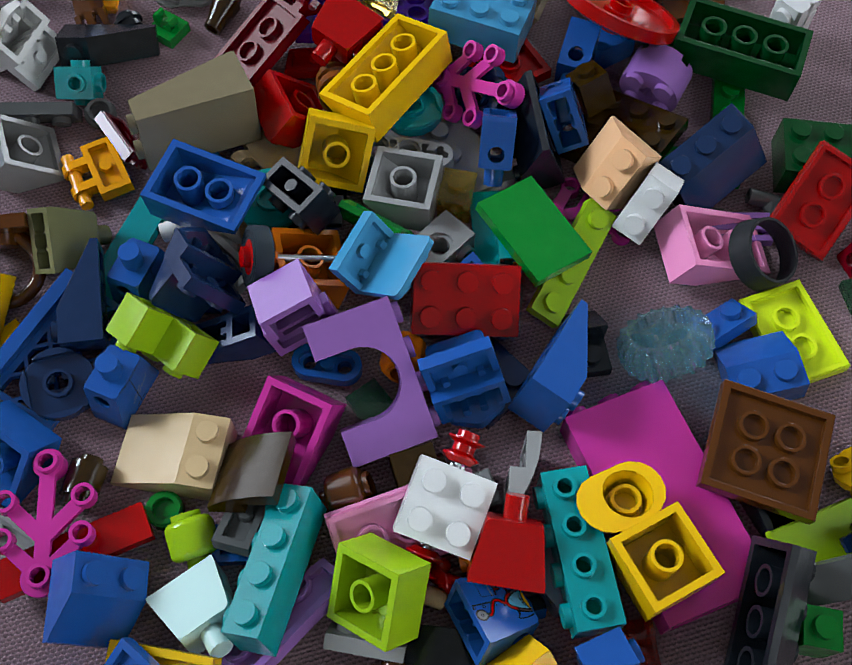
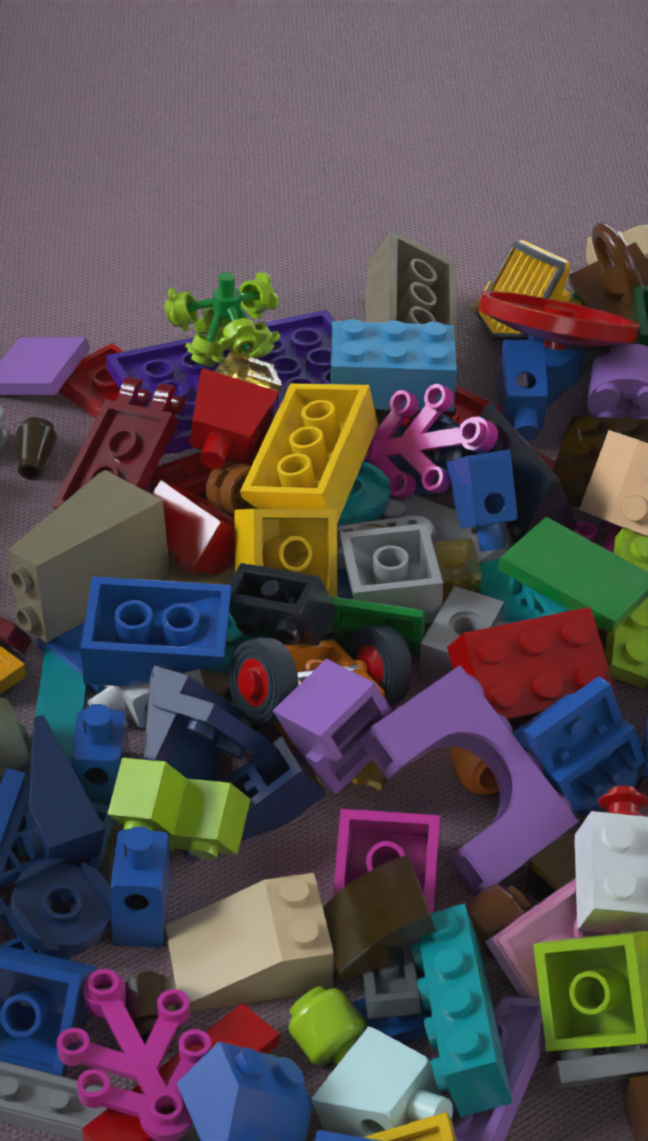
camera: 20 degrees left, 20 degrees down
(162, 507) = (273, 1009): green tile -> none
(327, 369) = (394, 795): blue plate -> none
(368, 400) = (464, 821): clear green tile -> none
(378, 260) = (417, 647): dark azure bracket -> none
(560, 109) = (550, 440): blue torso -> none
(592, 88) = (561, 415): dark brown brick -> none

